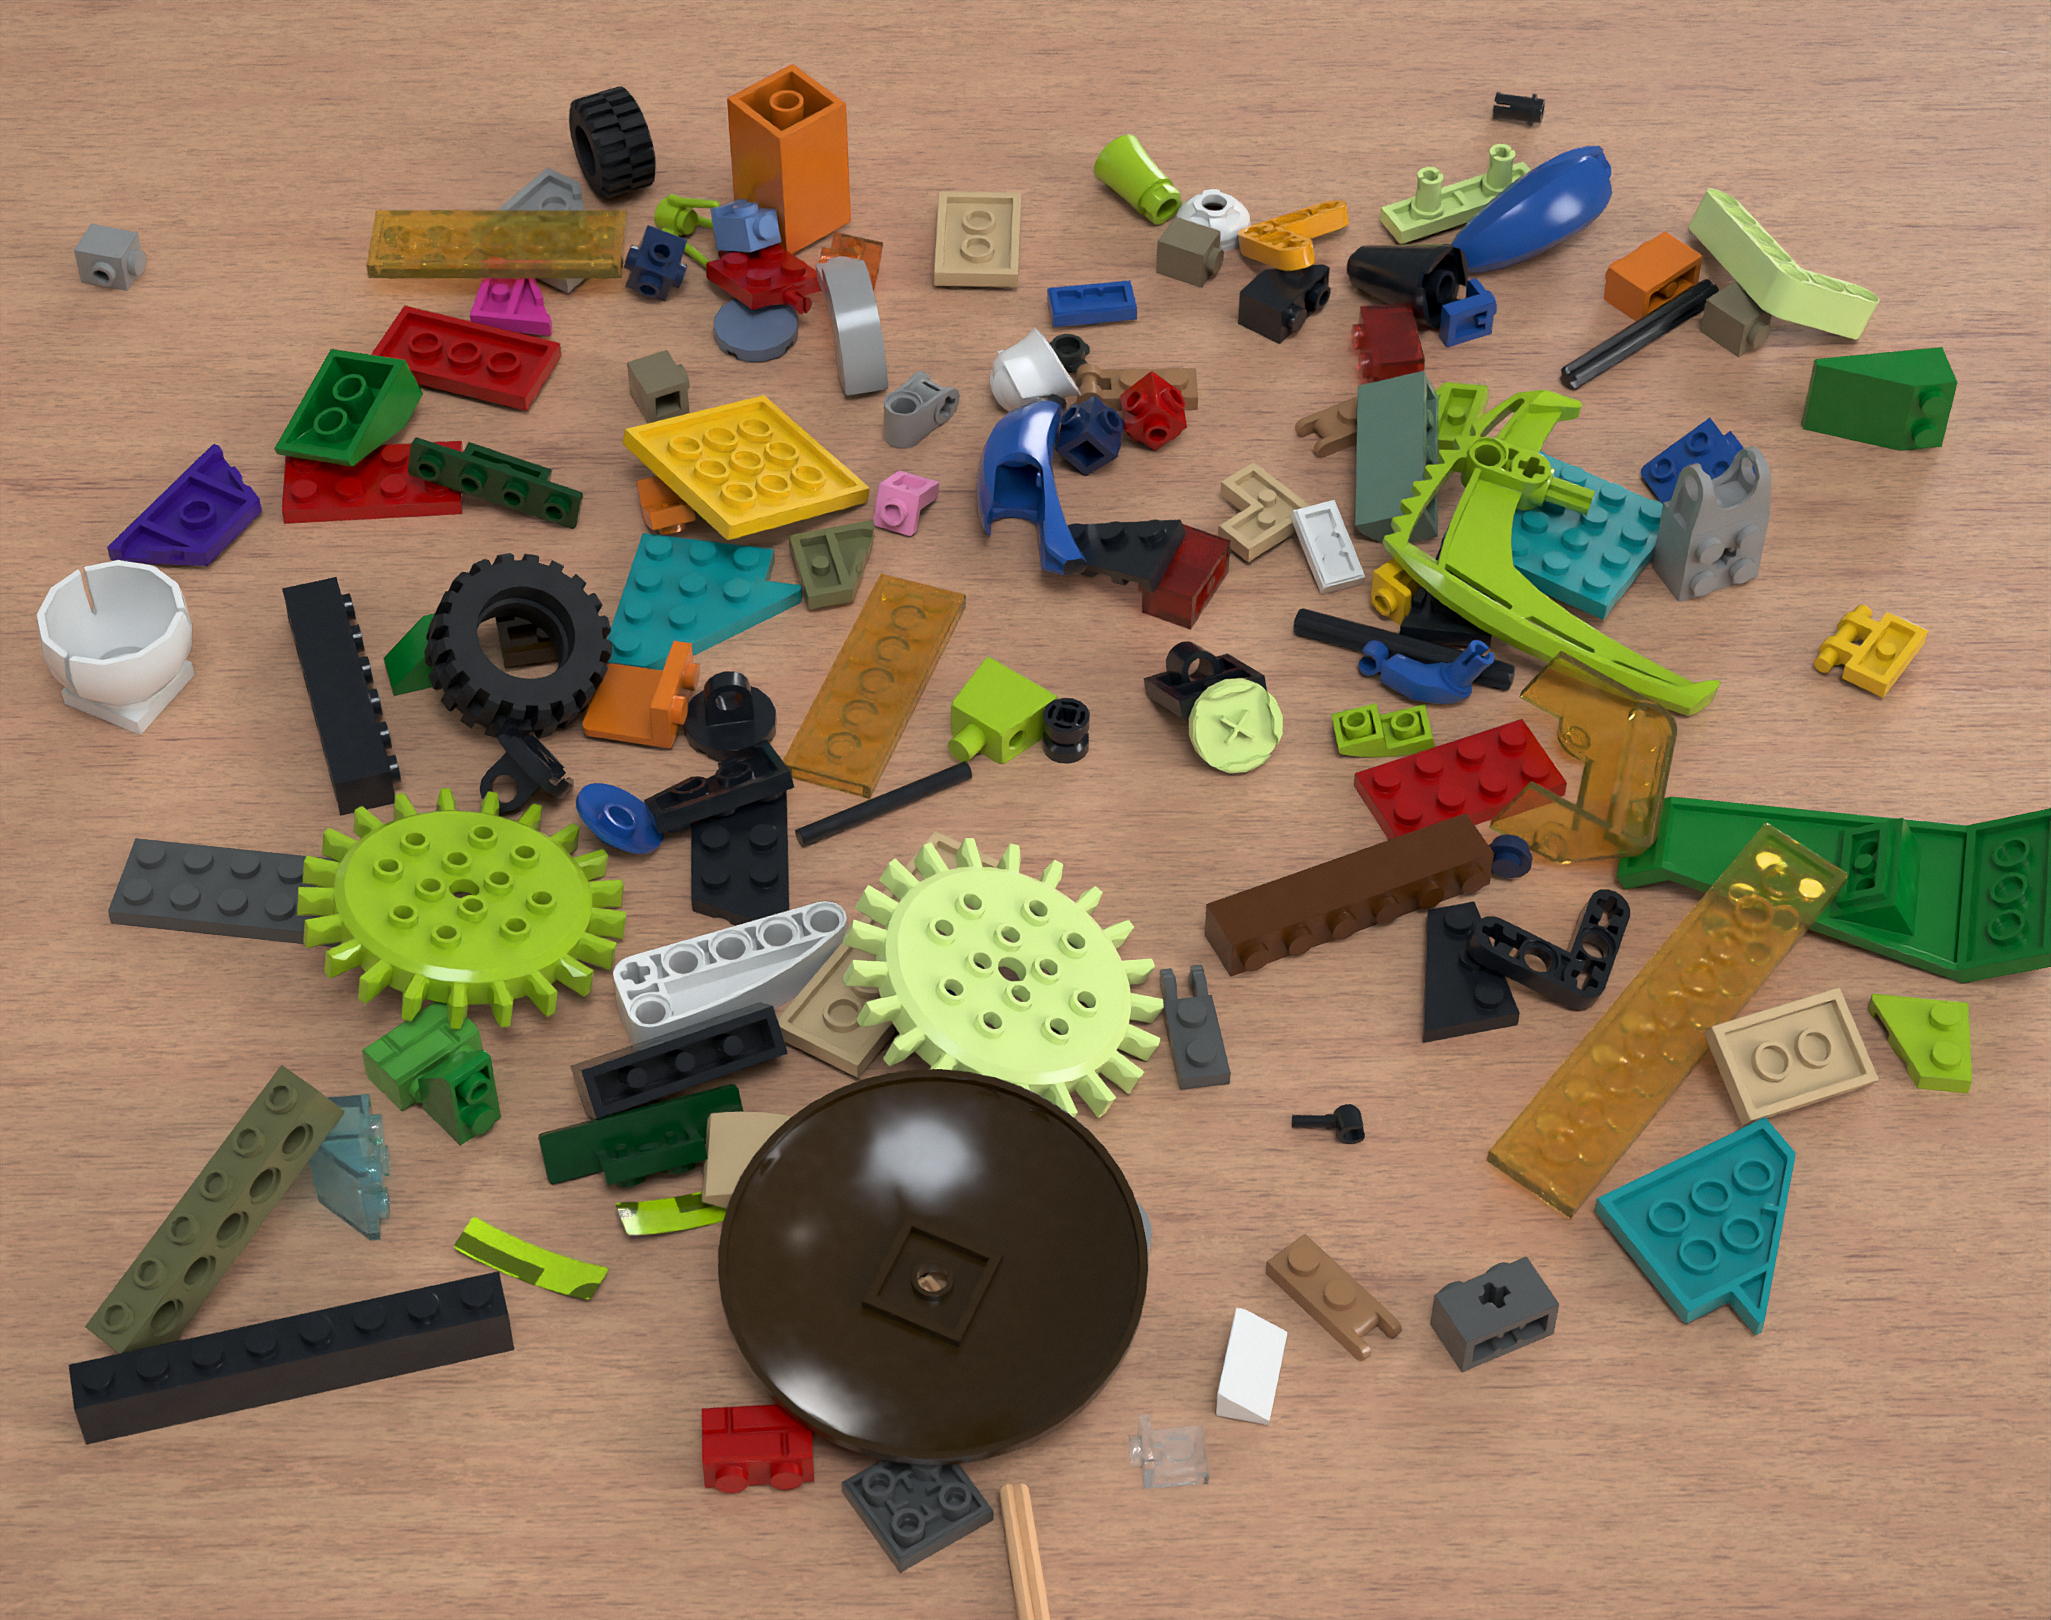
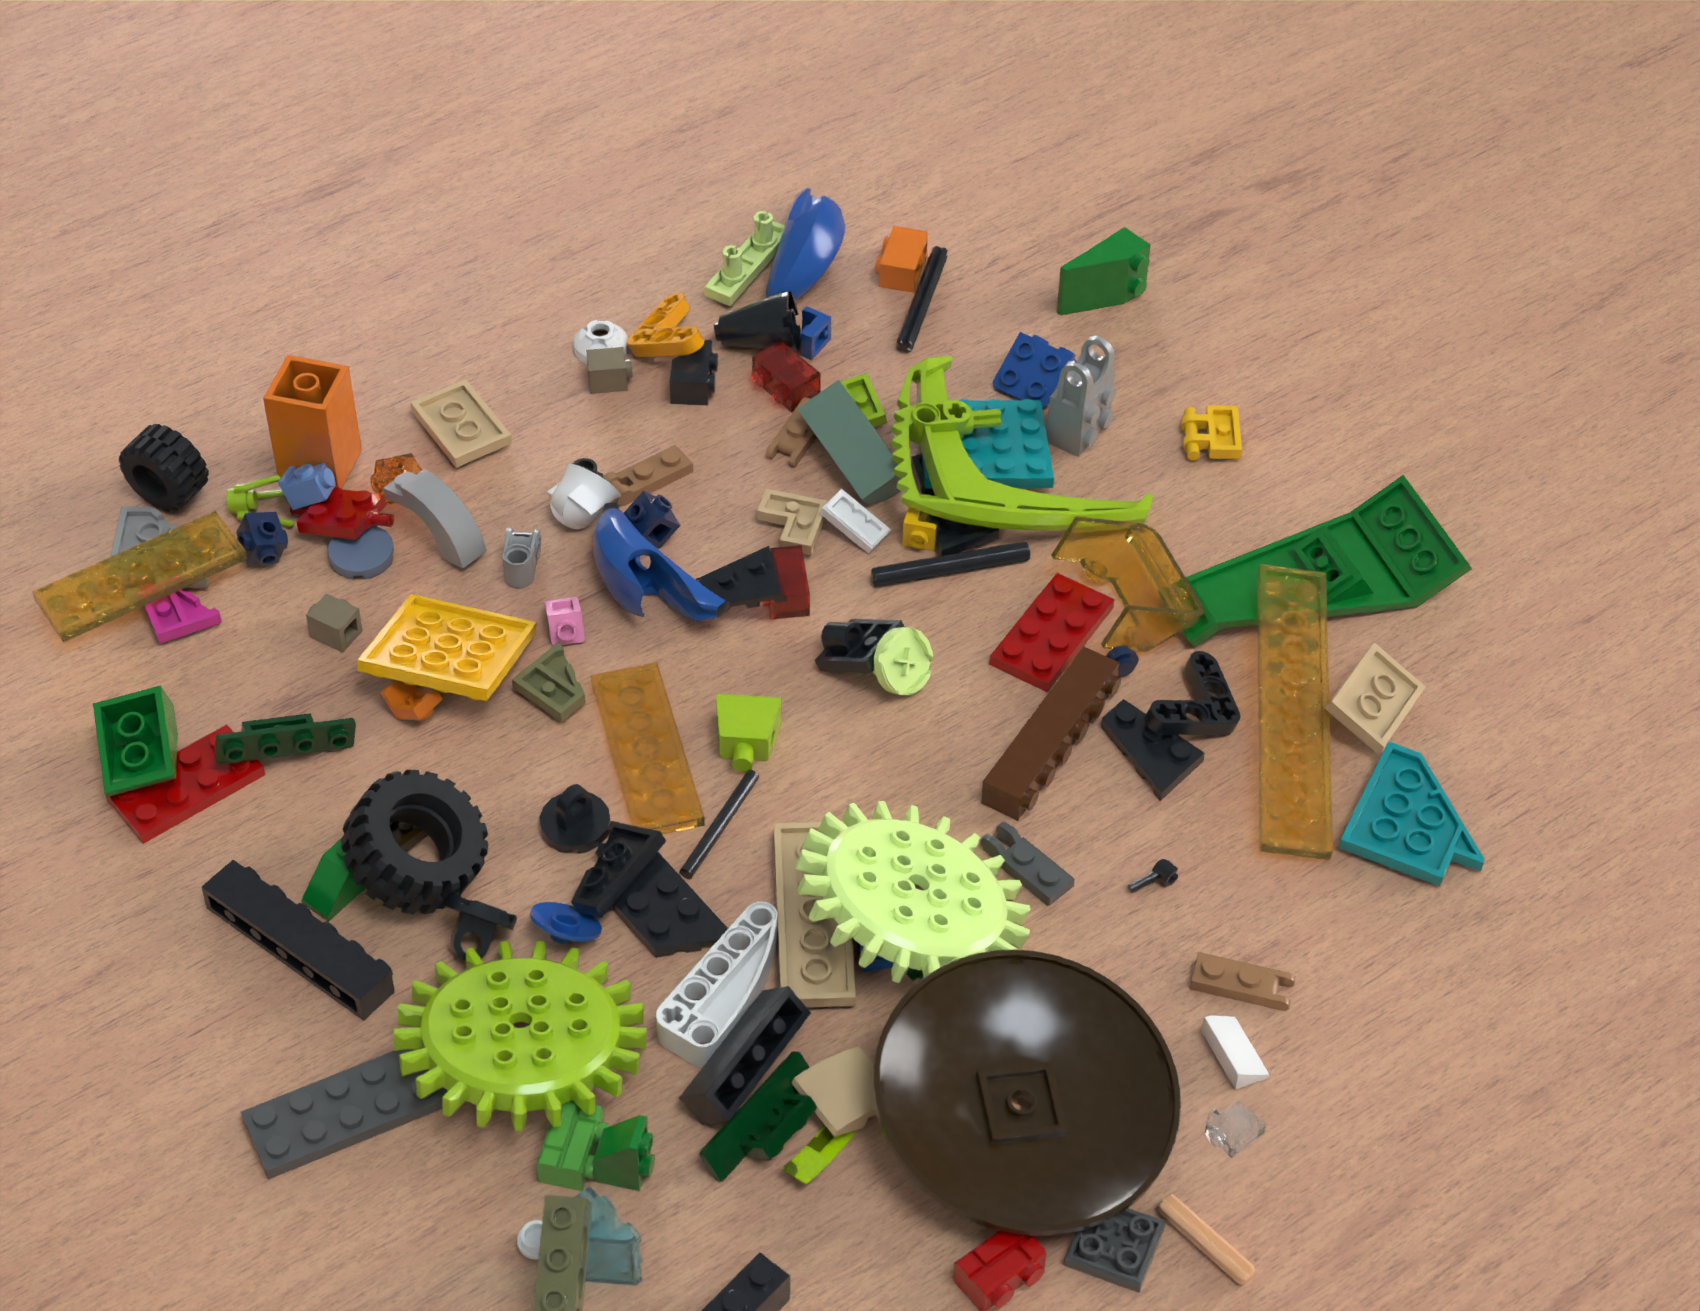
camera: 35 degrees left, 0 degrees up
(124, 654) = (123, 980): white plate -> none
(191, 517) = (78, 871): dark purple wing -> none
(470, 357) = (180, 663): red plate -> none
(529, 1261) = (753, 1238): clear neon green sticker -> none
(644, 702) = (517, 835): orange bracket -> none
(694, 596) = (480, 749): teal wing -> none
(1066, 730) = (797, 717): black wheel -> none
(1091, 303) = (572, 432): blue plate -> none
(1137, 179) = (536, 336): lime plant -> none
(1153, 411) = (678, 484): red brick -> none
(1393, 734) = (983, 623): lime slope -> none
(1427, 682) = (984, 578): blue arm -> none
(1494, 1313) = (1340, 938): dark grey brick -> none
(1521, 107) = (732, 184): black pin -> none
(1735, 320) = (974, 263): dark tan brick -> none
(1773, 275) = (972, 222): yellowish green beam -> none
(1929, 1038) = (1429, 648): lime wing -> none

